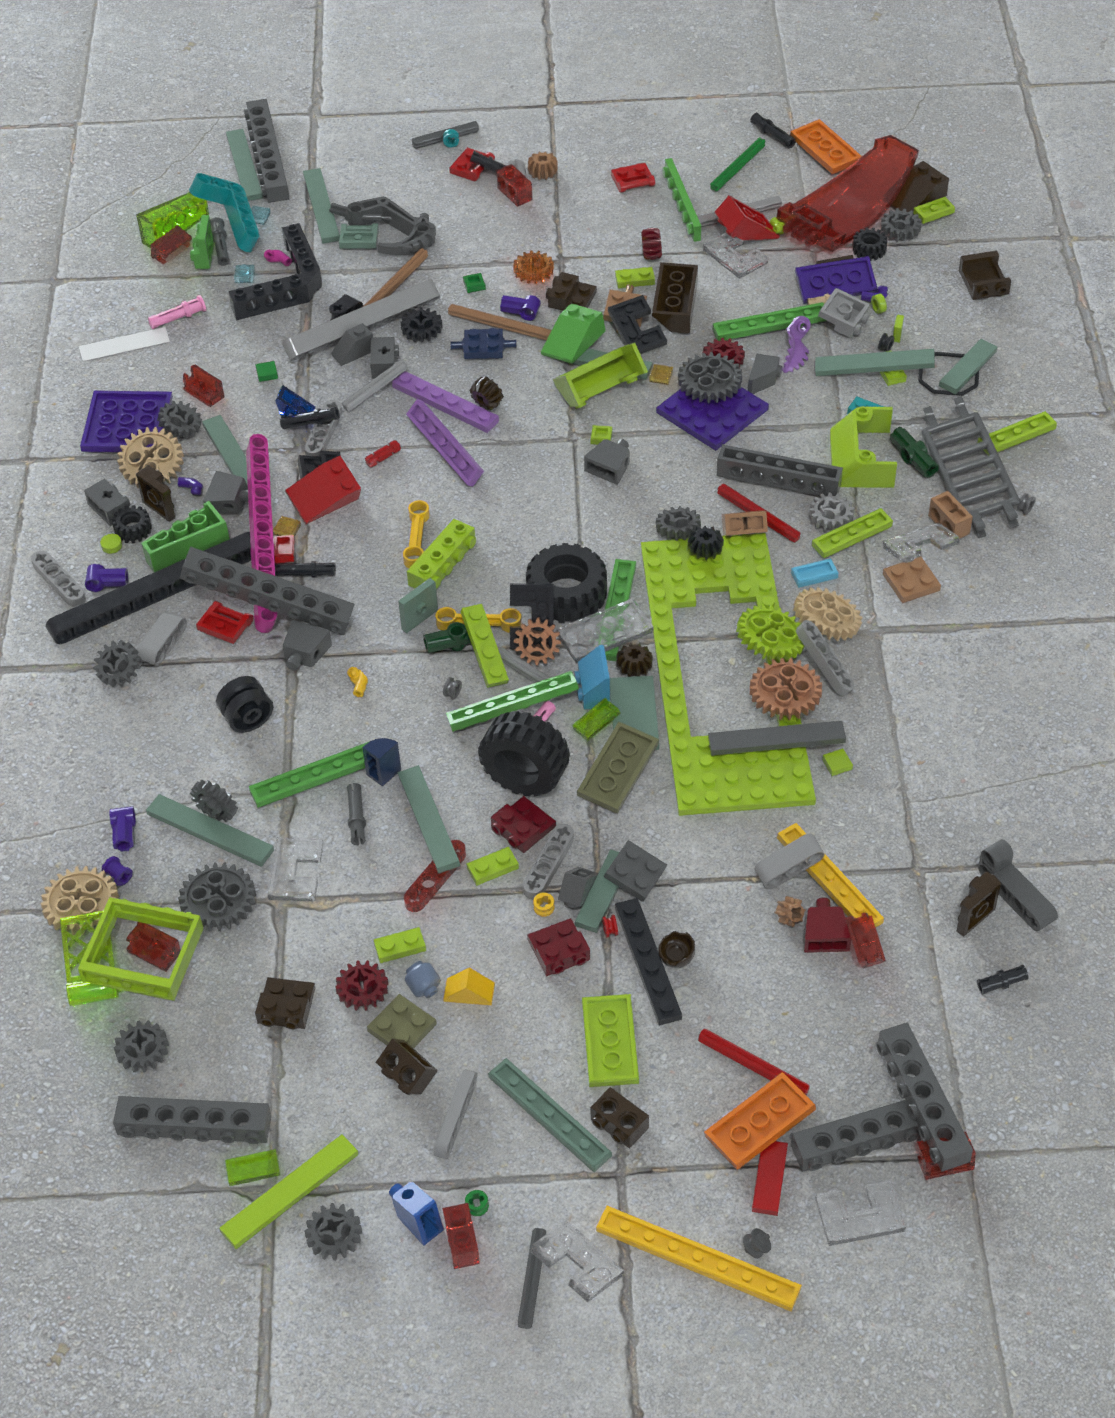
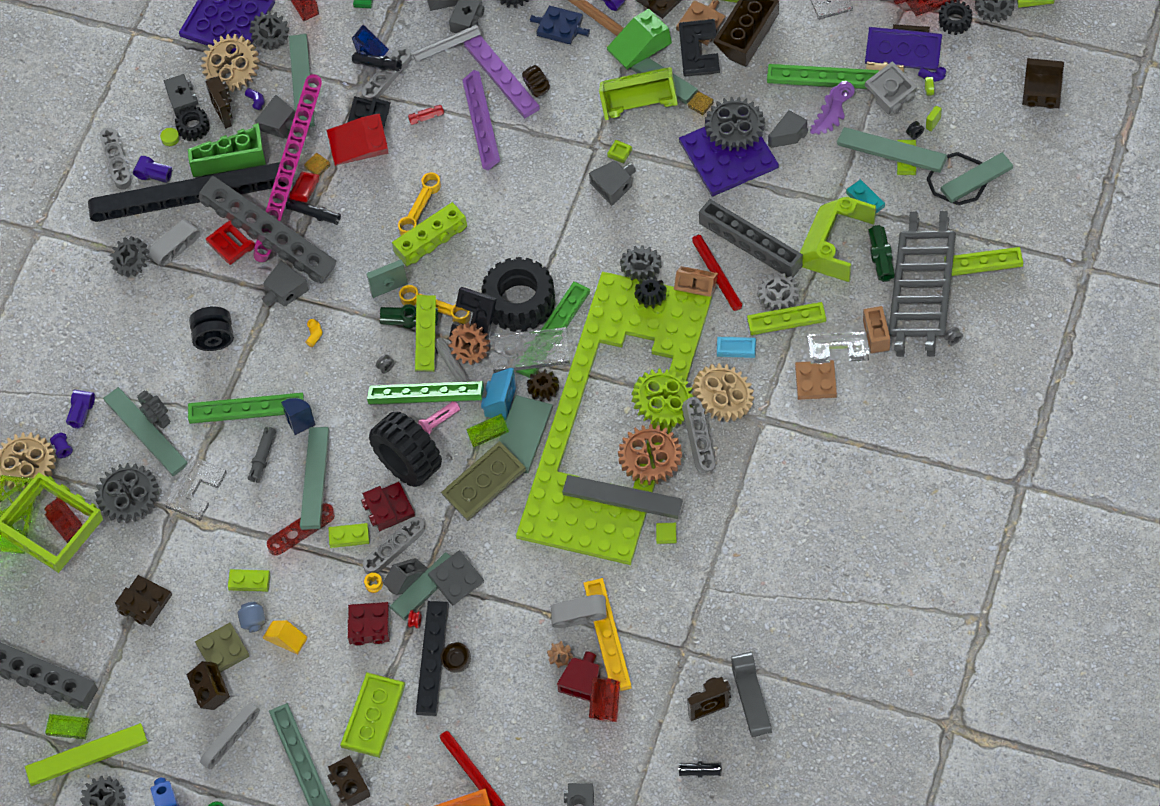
camera: 25 degrees right, 10 degrees up
(153, 1046) = (25, 603): dark grey gear -> none
(349, 985) = (207, 609): dark red gear -> none
(725, 348) = (765, 97): dark red gear -> none

